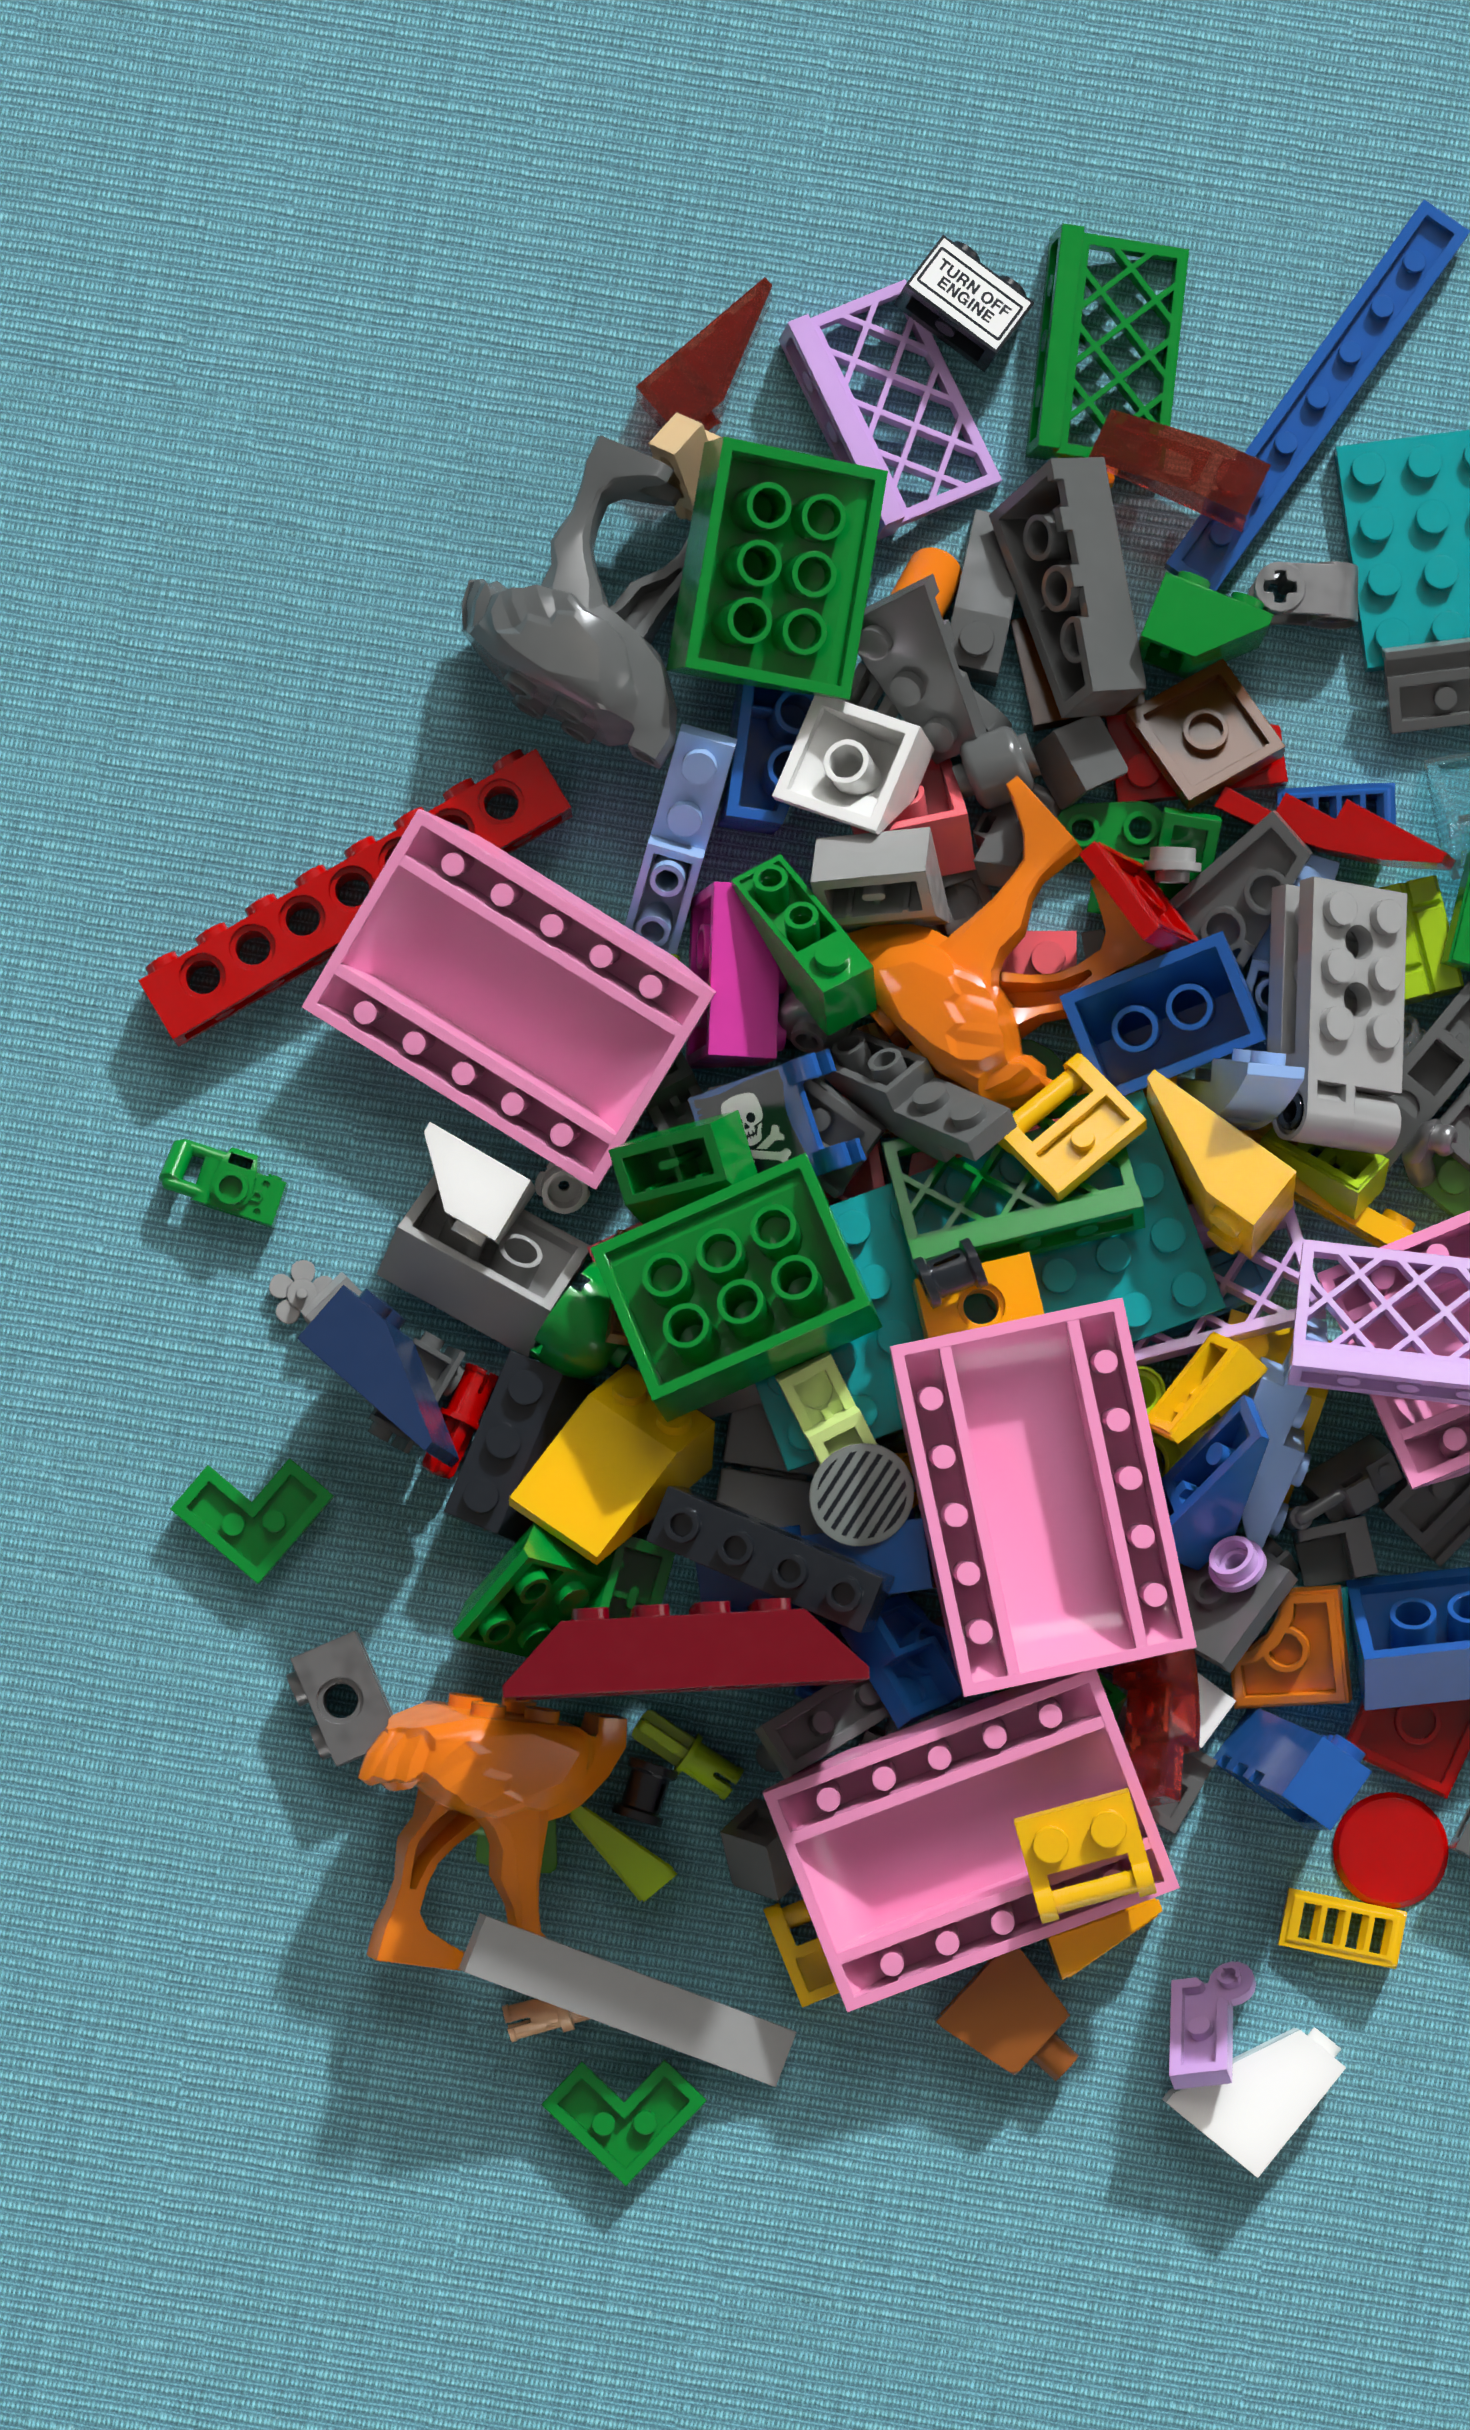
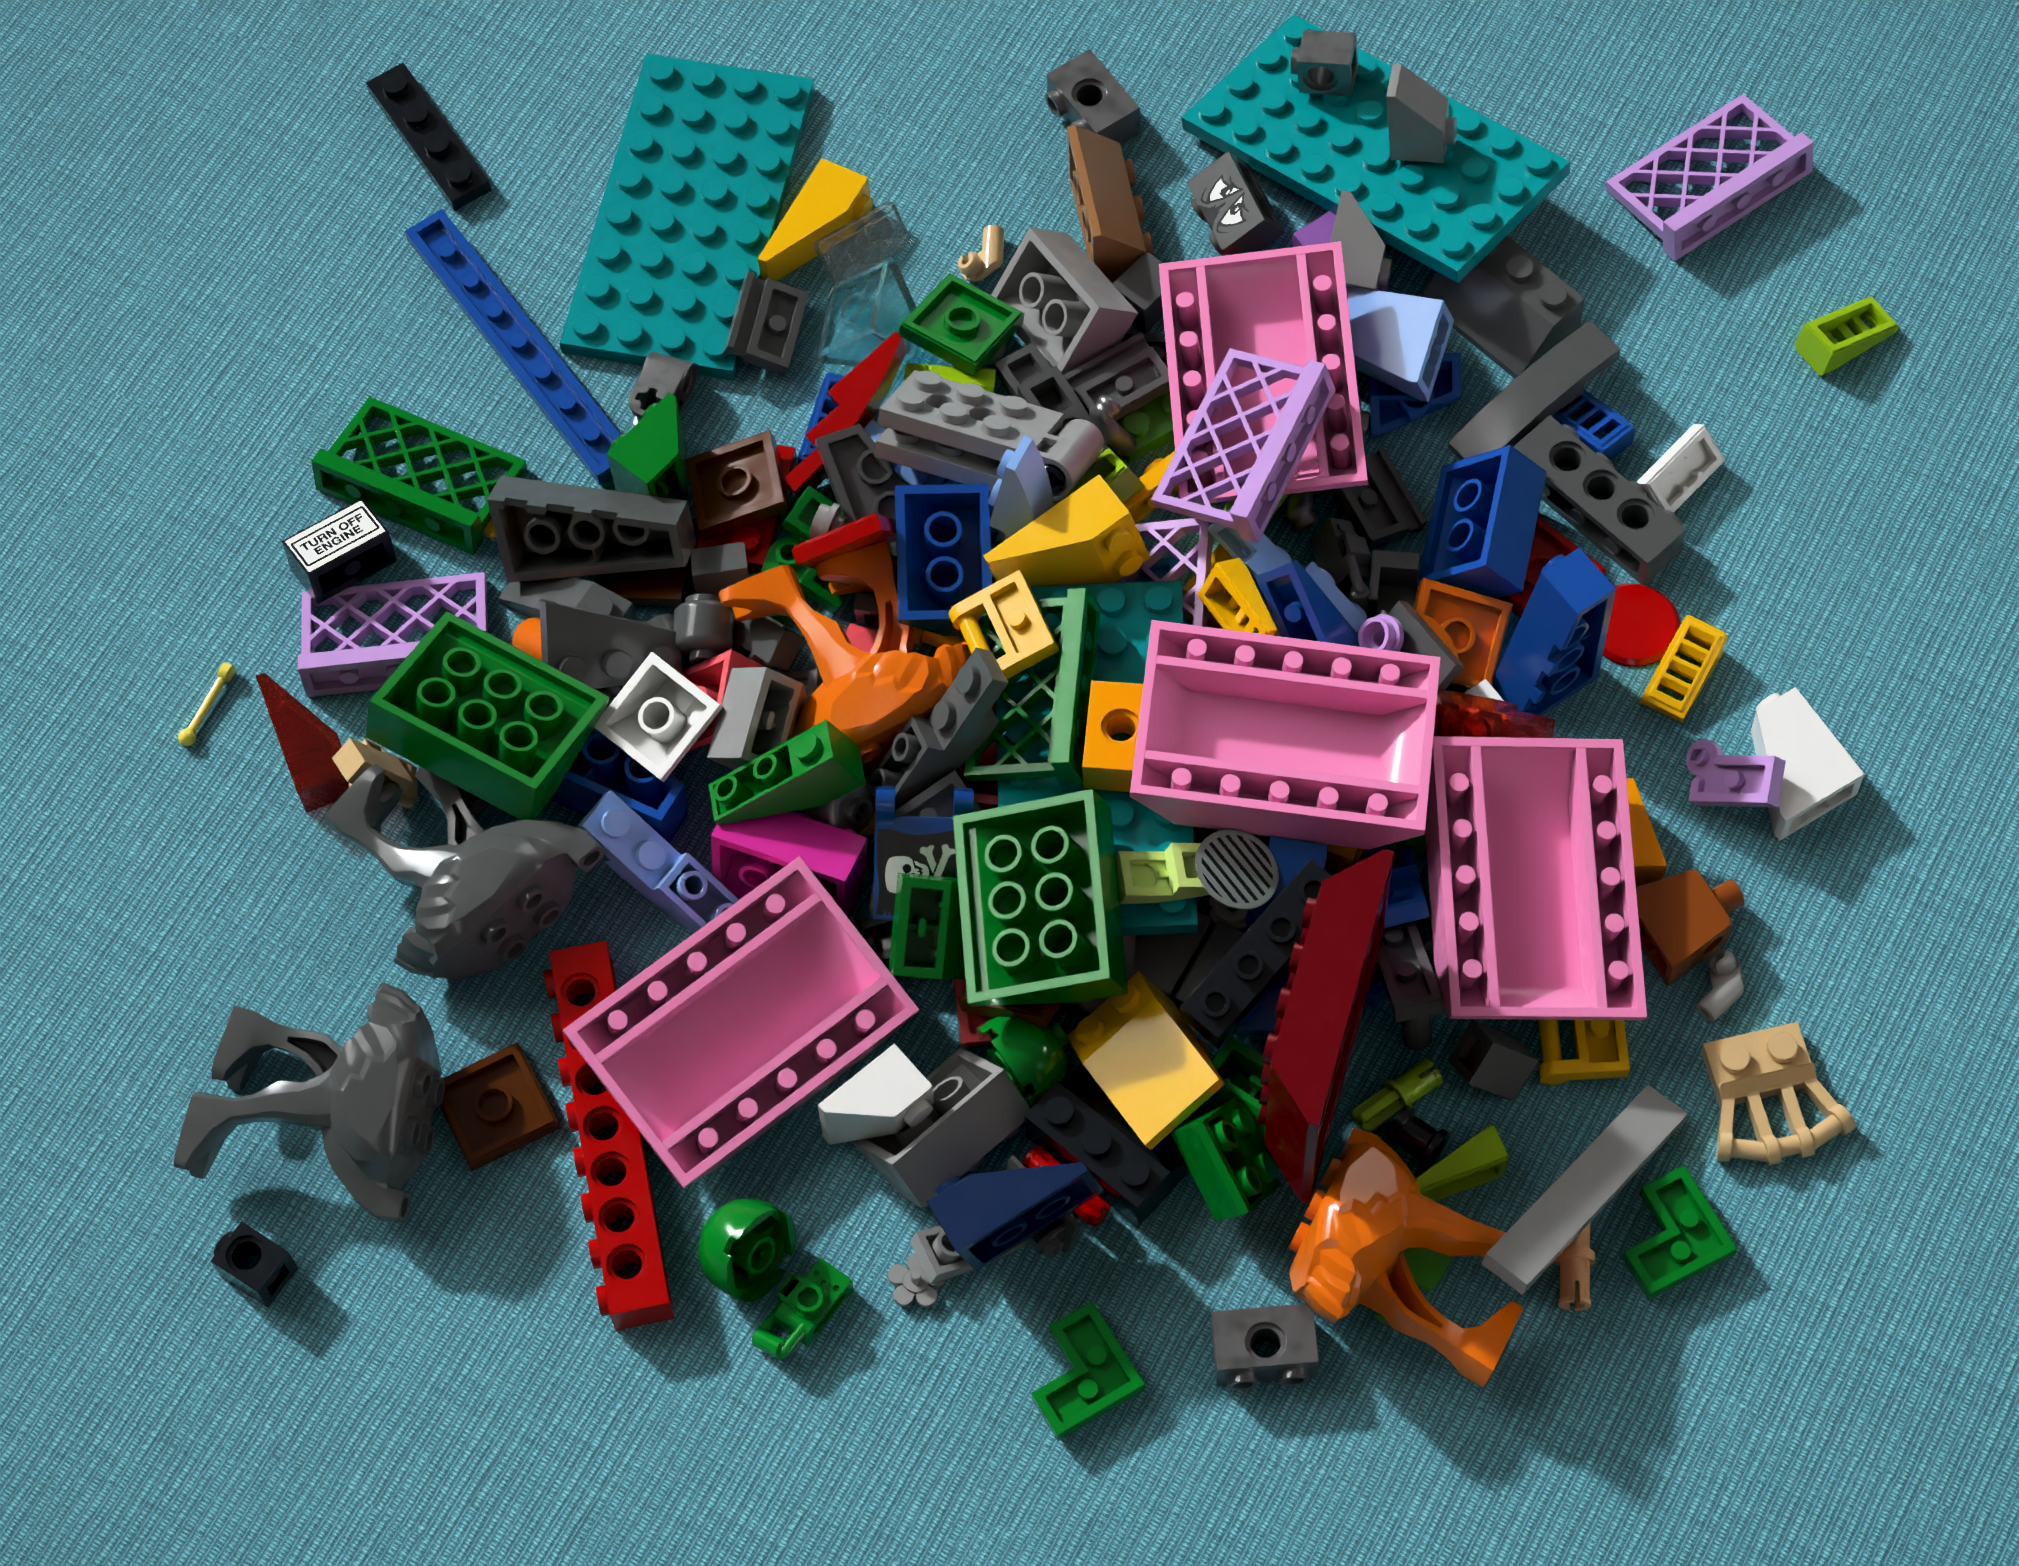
camera: 65 degrees left, 20 degrees down
(84, 594) = (263, 1280): none -> black brick
(267, 1094) = (745, 1246): none -> green cylinder
(277, 627) = (367, 1098): none -> dark grey animal
(351, 756) = (496, 1107): none -> reddish brown tile
(557, 1199) = (912, 1040): white plate -> none
(682, 226) = (187, 736): none -> light yellow hinge
(862, 2152) = (1762, 1067): none -> tan plate
(950, 1272) = (1088, 731): black bush -> none
(951, 2087) = (1725, 982): none -> light grey arm
(1079, 1836) = (1560, 793): yellow plate -> none
(1183, 467) = (534, 430): clear red slope -> none

